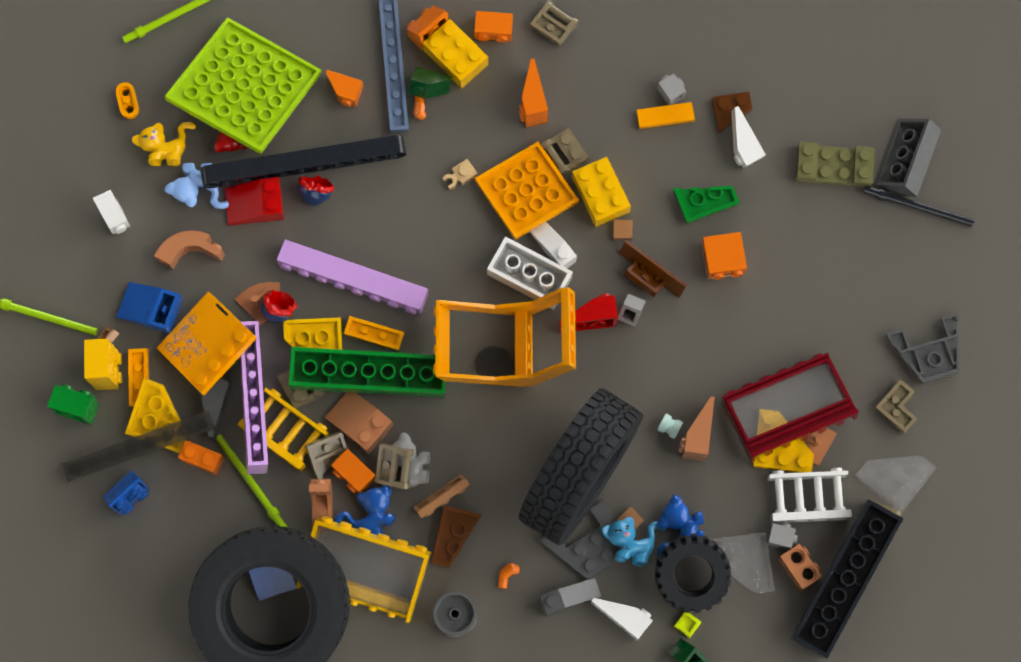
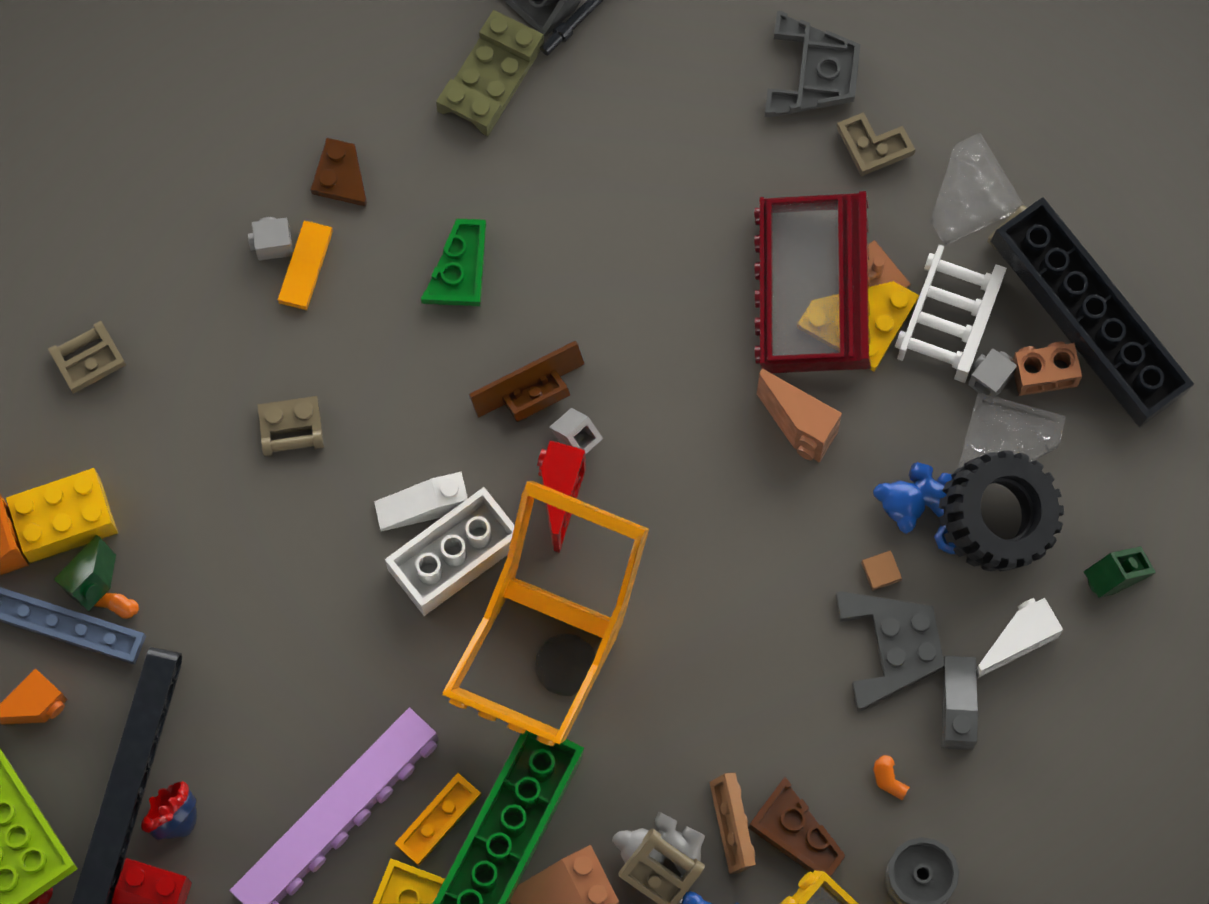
camera: 65 degrees left, 5 degrees down
(462, 173) = (250, 586): tan plate -> none
(493, 26) = (47, 443): orange brick -> none
(526, 190) = (323, 504): light orange plate -> none
(533, 106) = (194, 432): orange slope -> none
(580, 466) = (798, 584): black tyre -> none
(601, 191) = (378, 400): yellow brick -> none
(622, 229) = (447, 396): medium nougat tile -> none
(623, 533) = (902, 587): dark azure animal -> none
(670, 426) = (769, 455): light aqua wheel -> none
(687, 624) = (1064, 556): neon yellow tile -> none
(724, 255) = (554, 274): orange piece -> none
(745, 144) = (399, 173): white slope -> none

